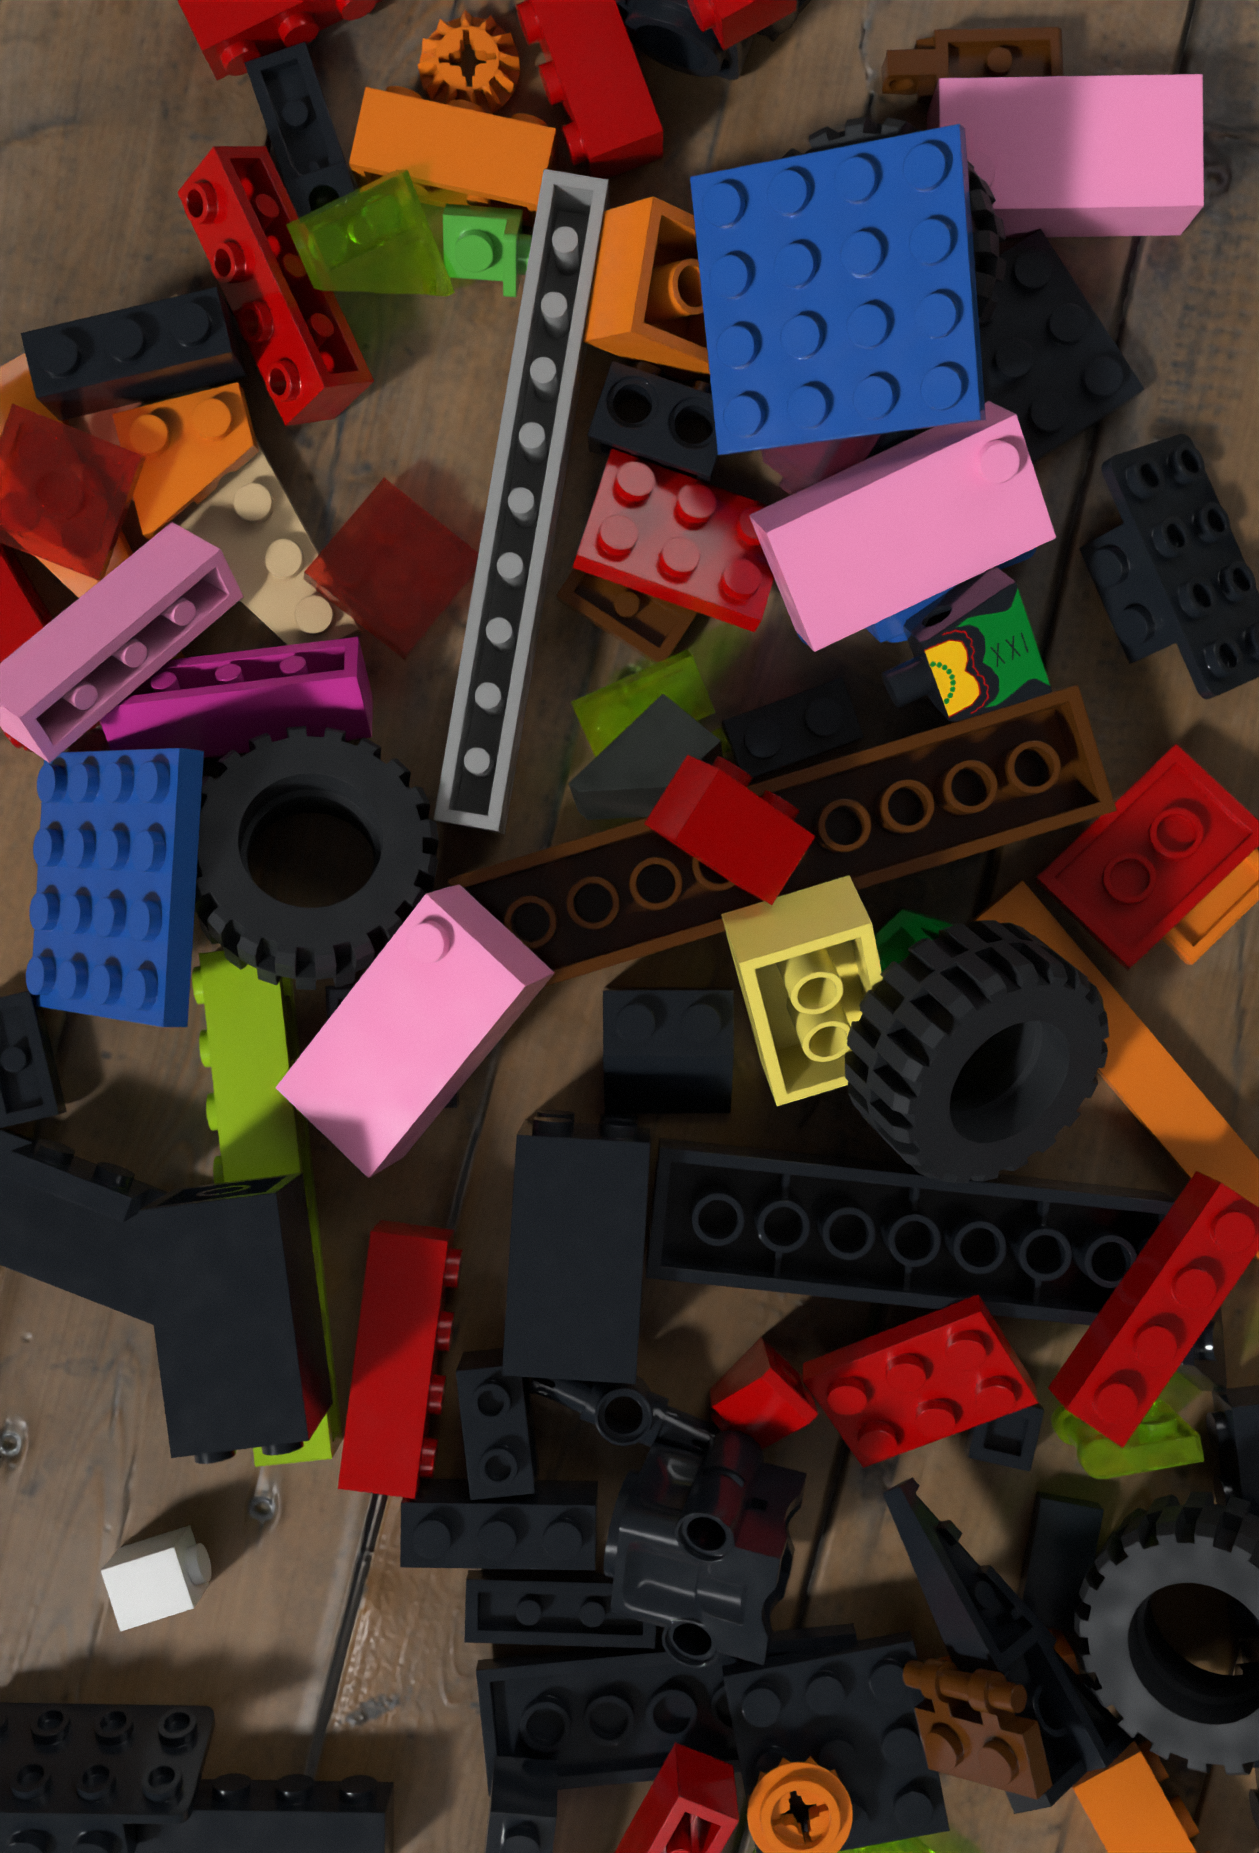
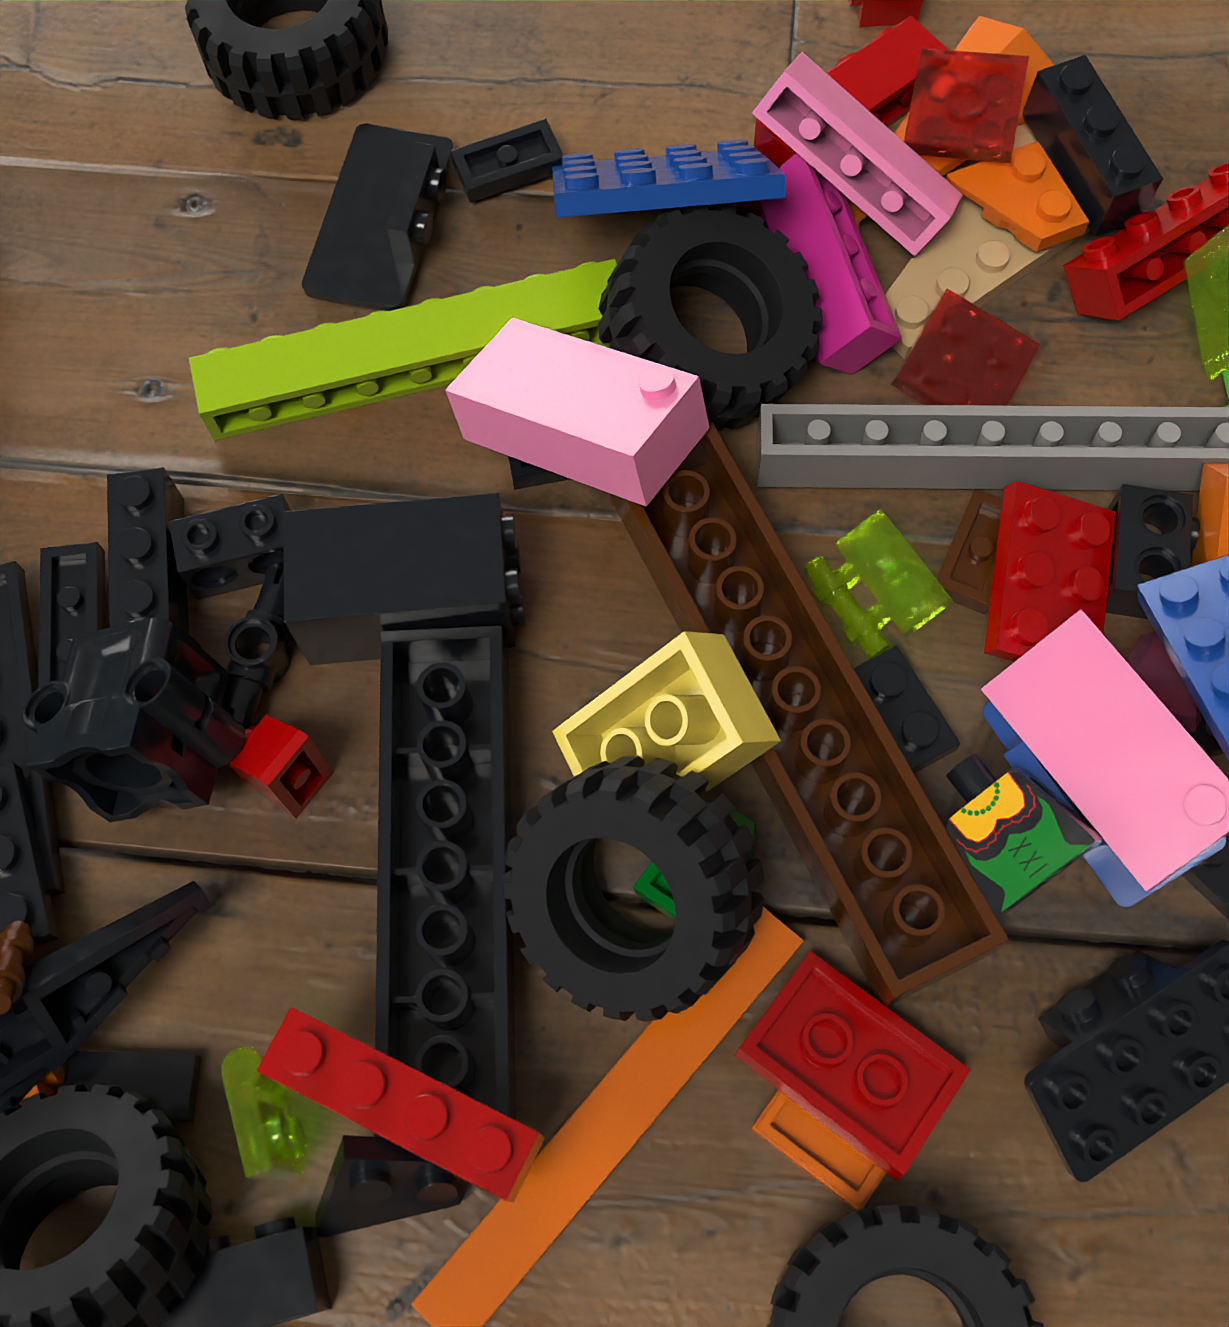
camera: 85 degrees right, 20 degrees down
(156, 1577) = (90, 310): white brick -> none
(236, 1317) = (316, 304): black brick -> none
(398, 1359) = (290, 454): red brick -> none
(641, 763) = (842, 560): pearl dark grey slope -> none
(668, 1049) = (586, 635): black slope -> none
(730, 827) = (804, 619): red brick -> none
(920, 1382) = (304, 904): red plate -> none
(1007, 1439) = (258, 1003): black plate -> none

